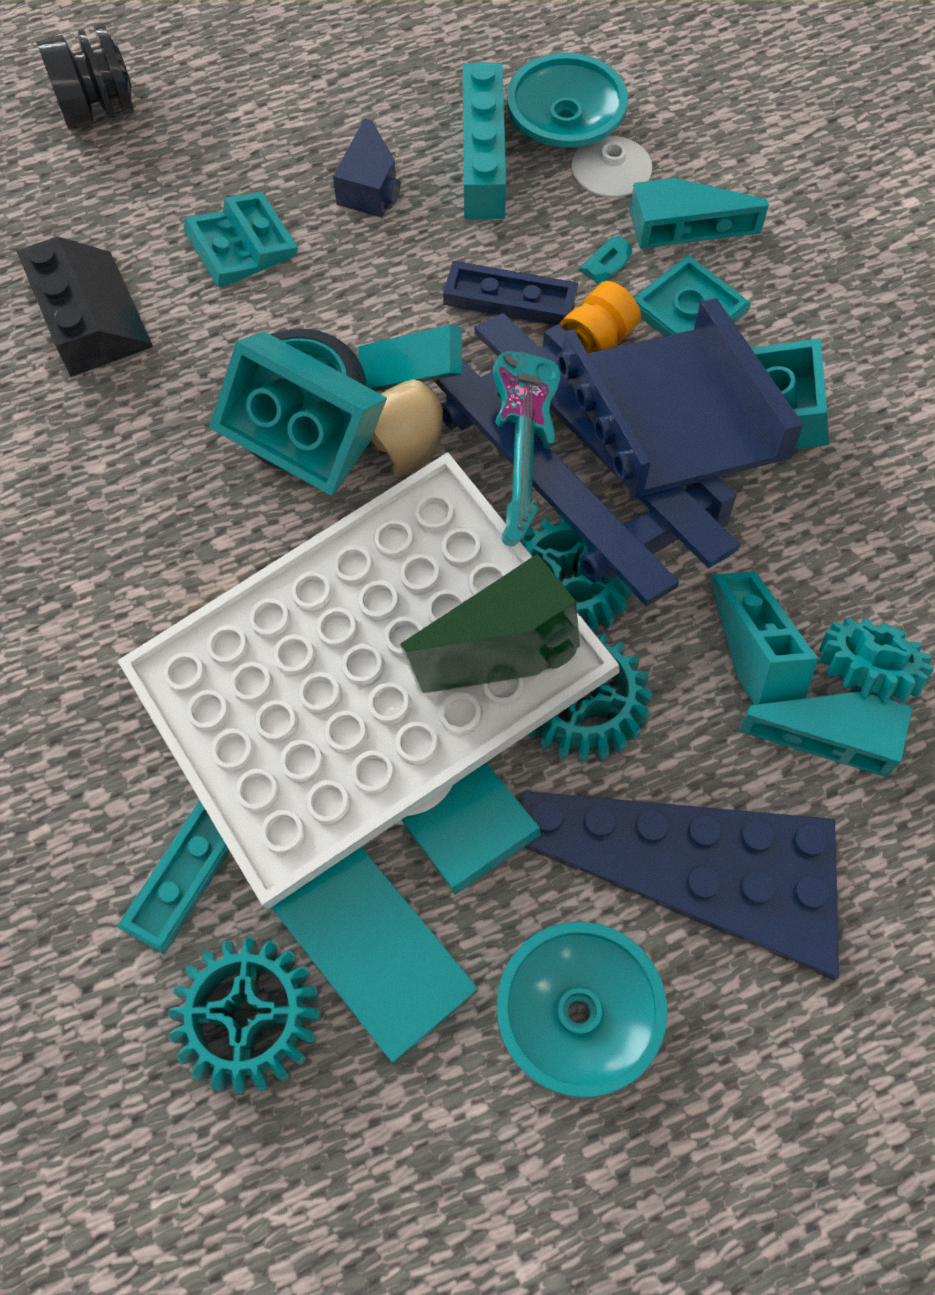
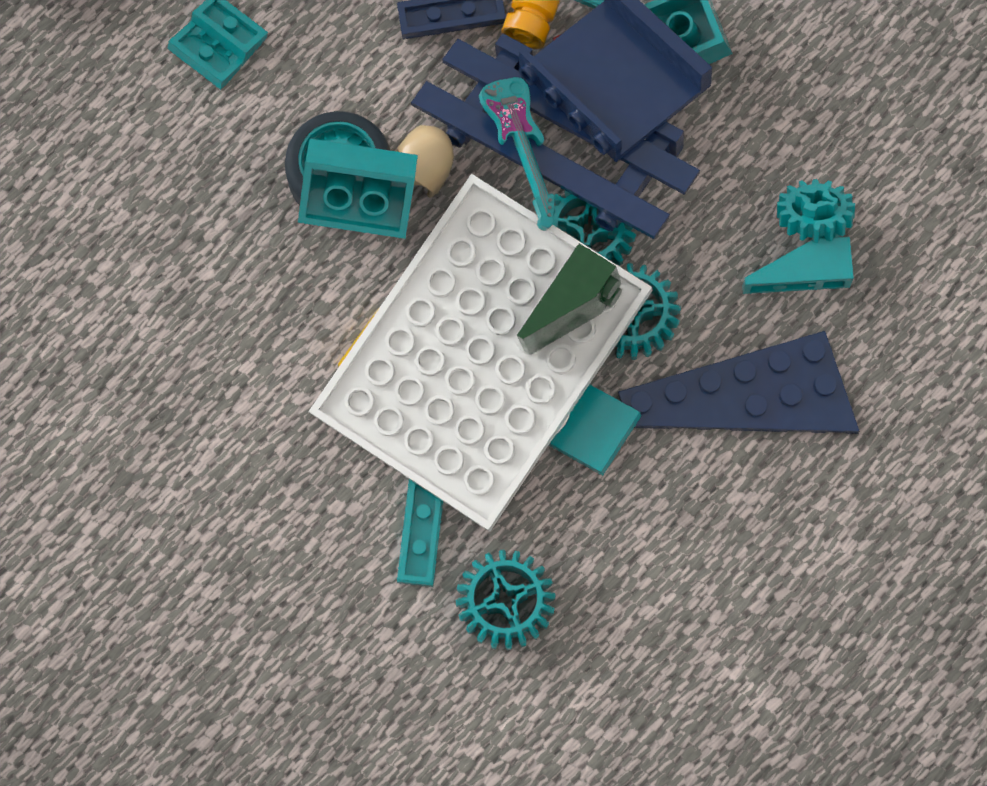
camera: 20 degrees left, 10 degrees up
(83, 303) = (130, 147): black slope -> none
(376, 953) = (567, 531): teal tile -> none
(414, 356) = (411, 107): teal tile -> none
(607, 976) = (714, 487): teal dish -> none
(762, 640) = (735, 223): teal slope -> none

